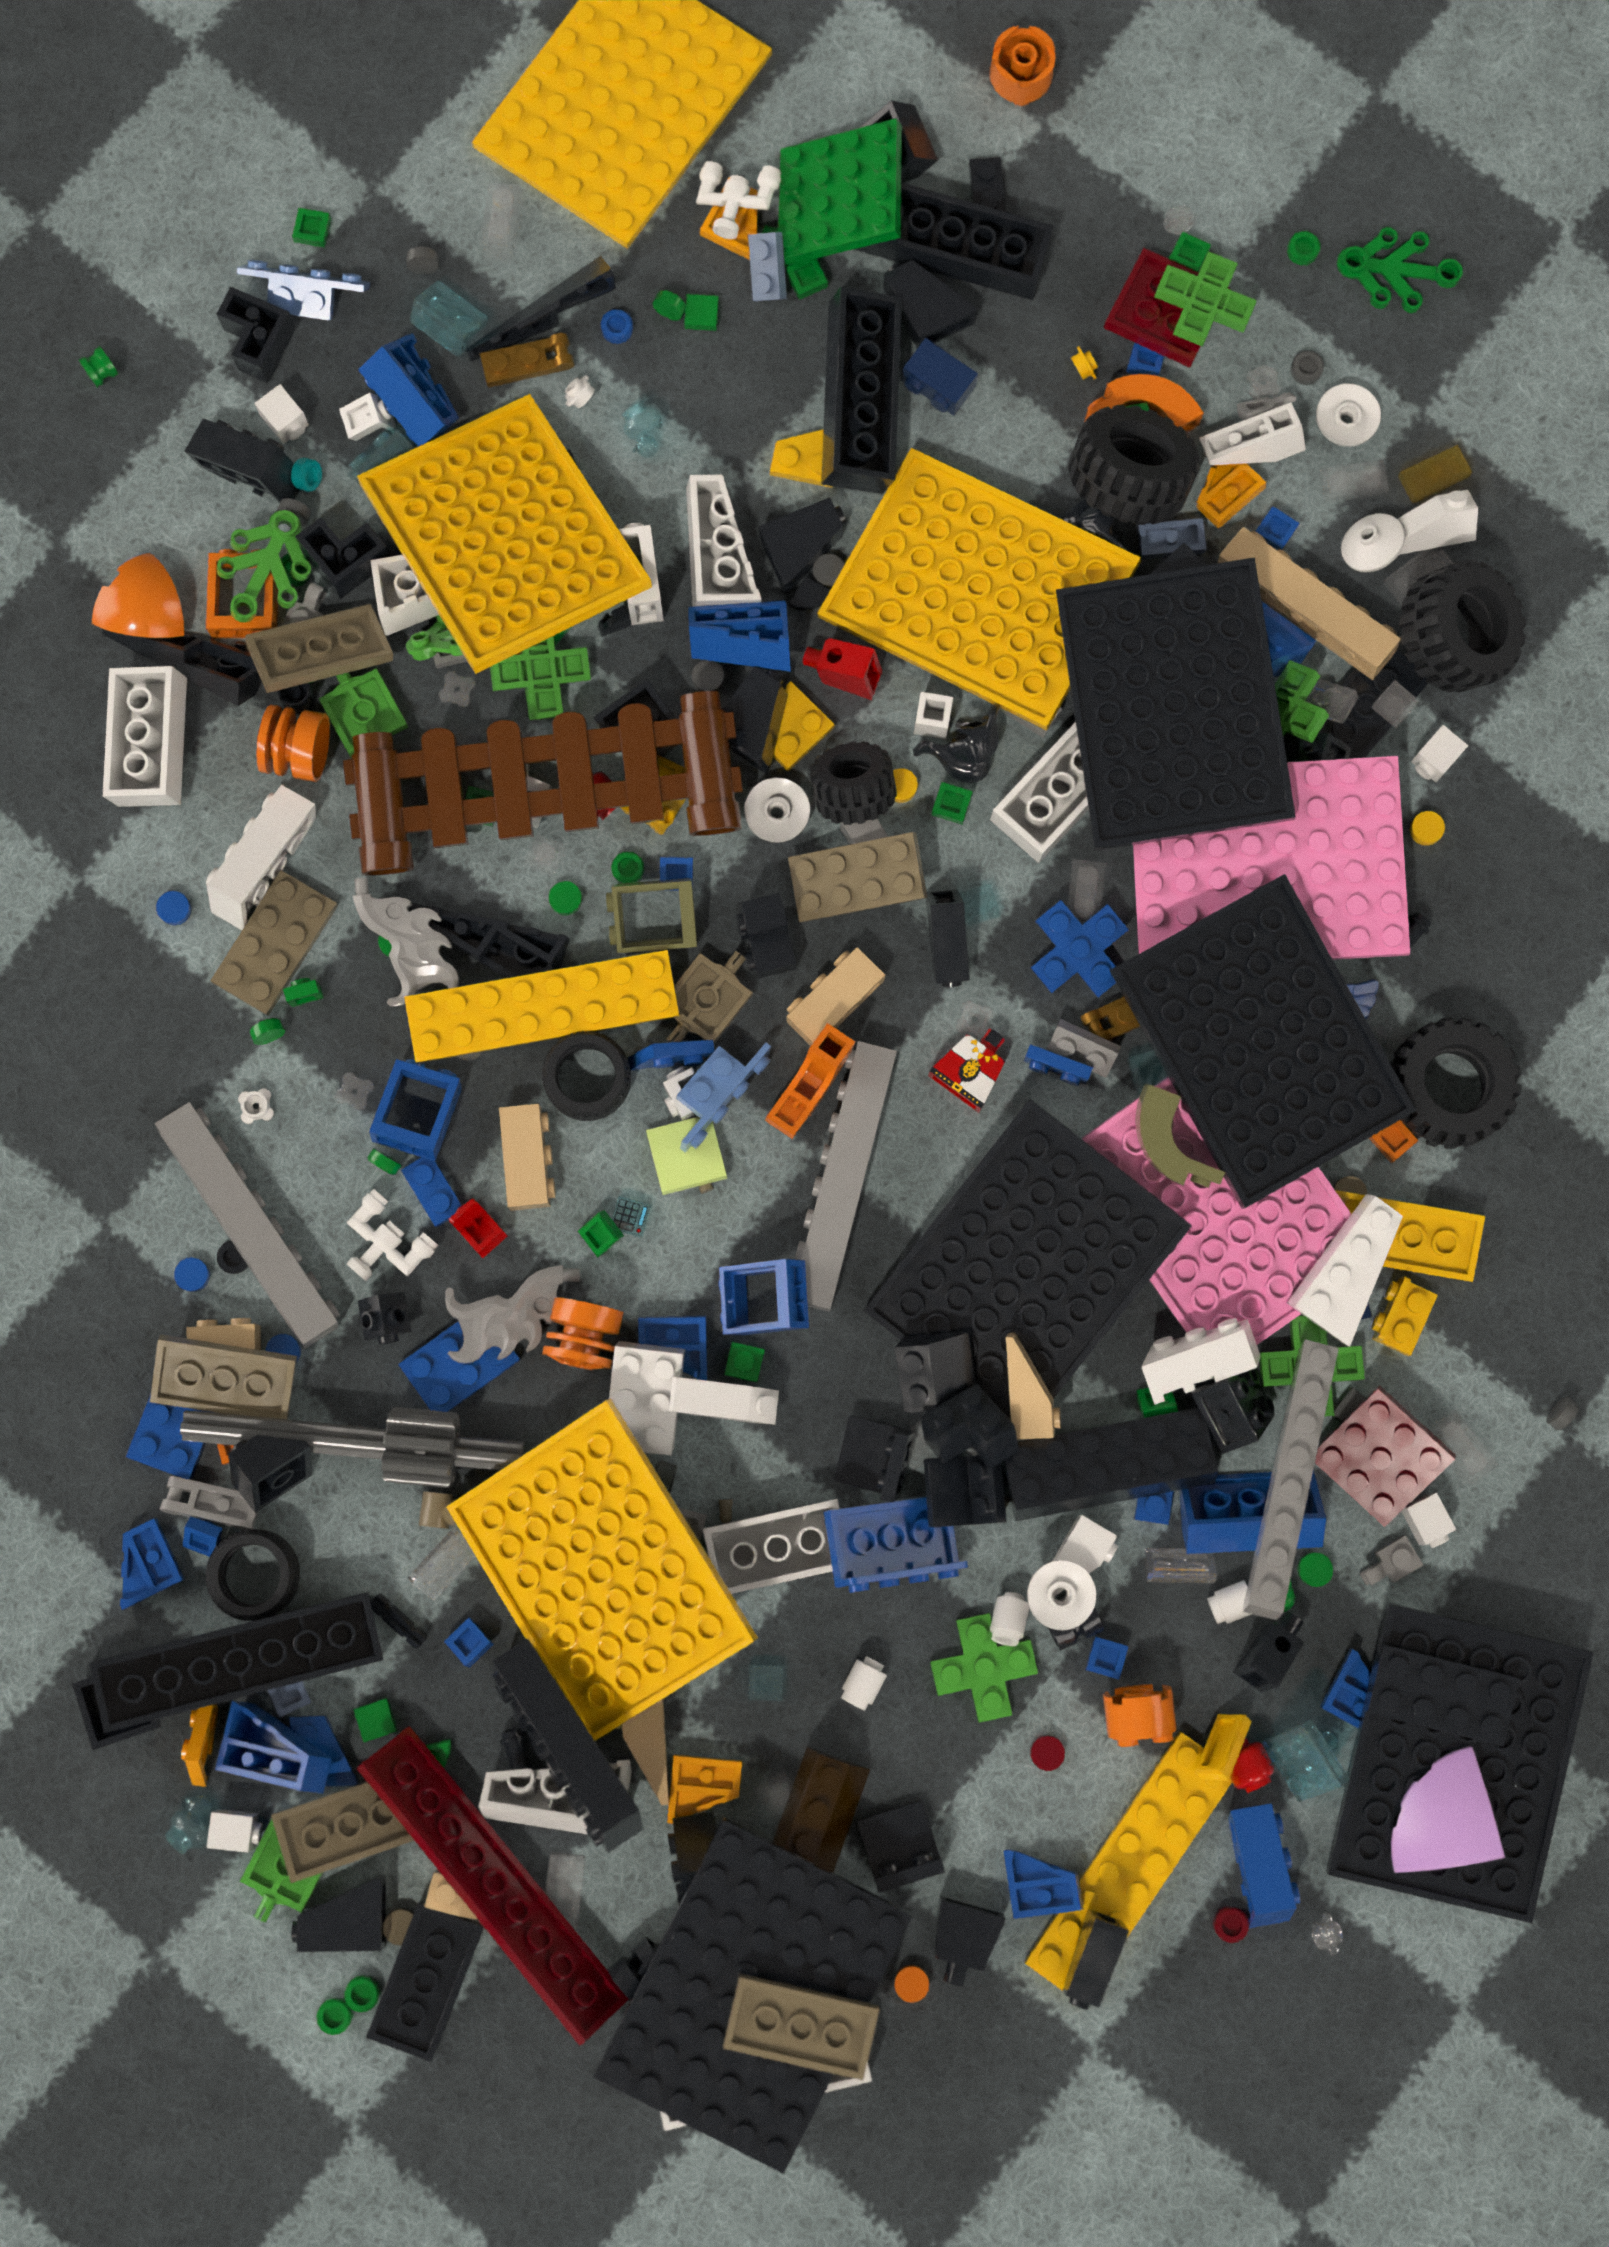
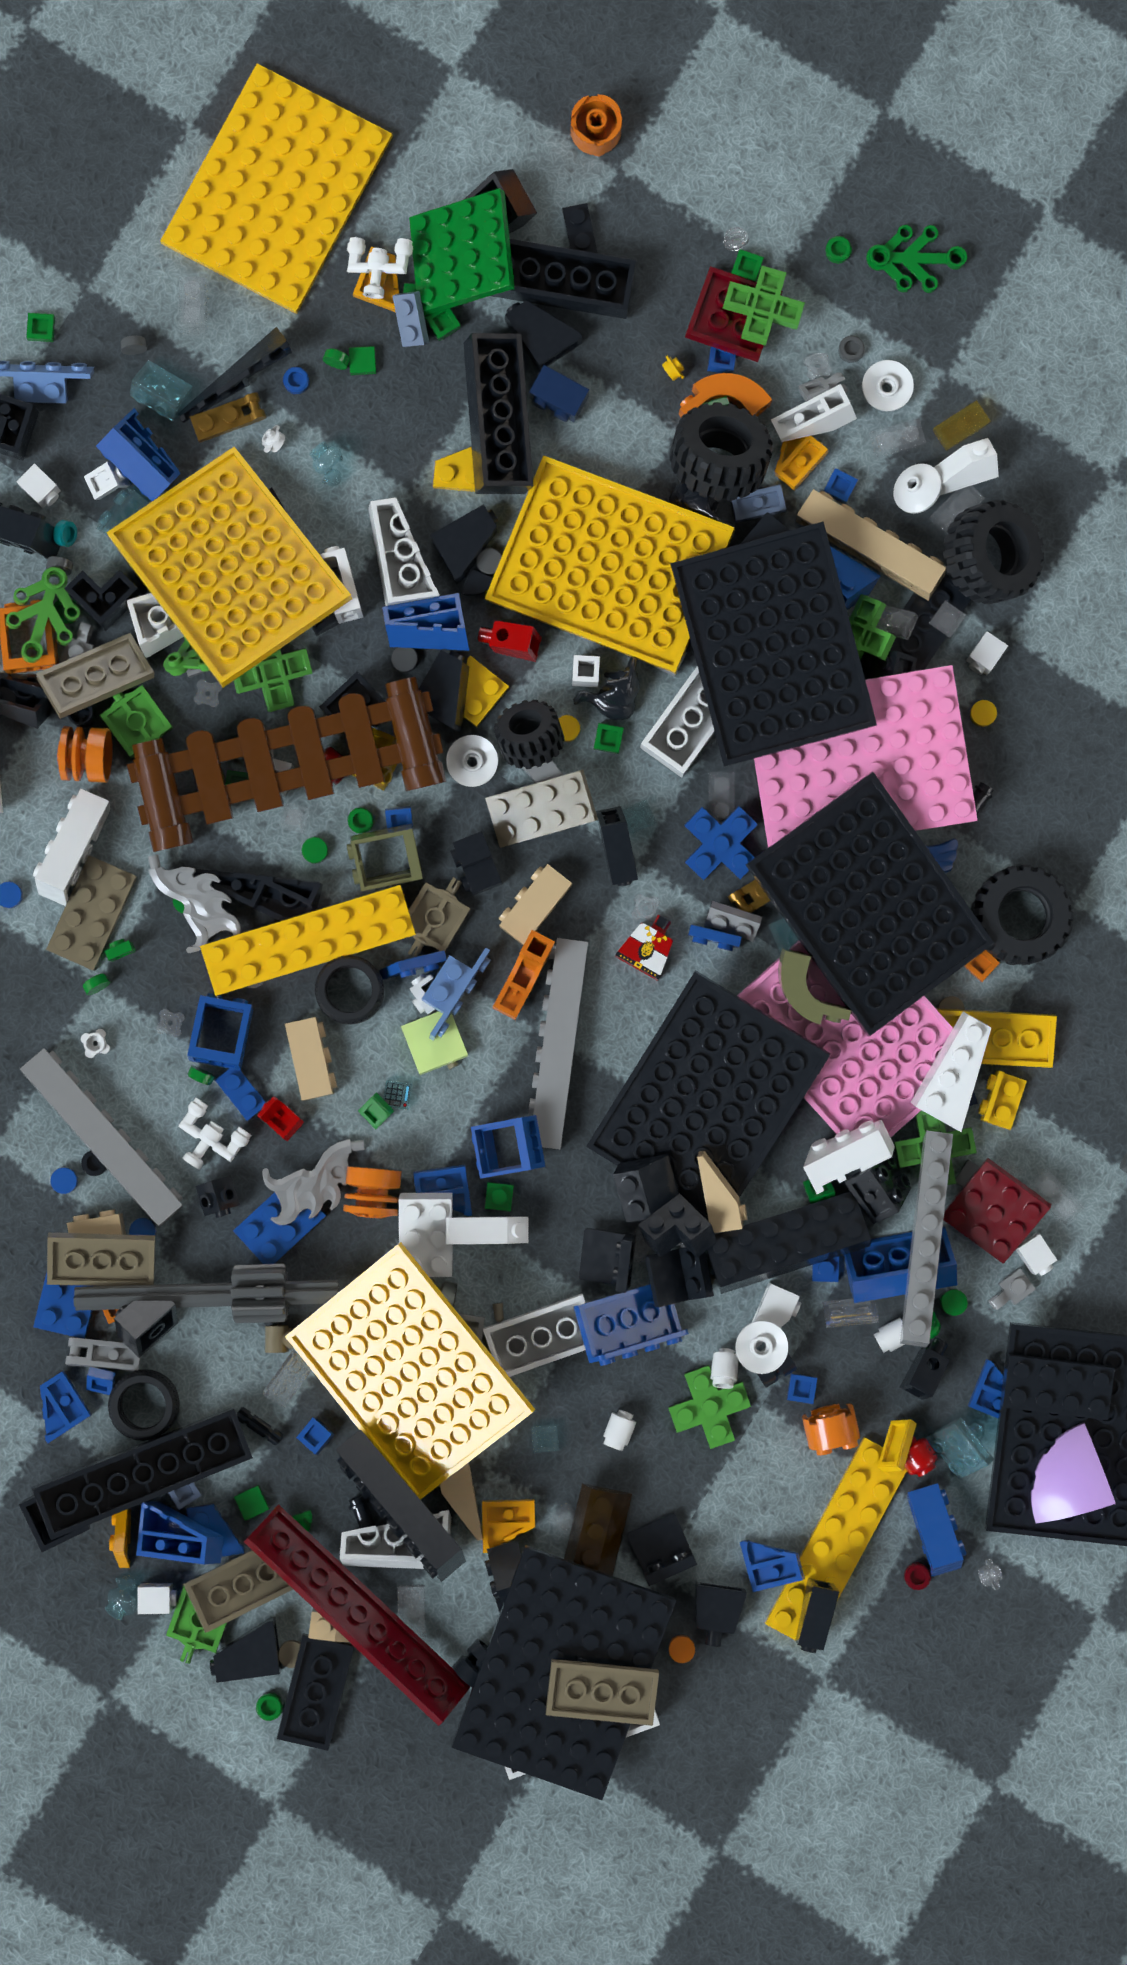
camera: 10 degrees left, 5 degrees up
(334, 2016) = (250, 1726): green tile -> none
(1047, 1753) = (764, 1465): dark red tile -> none

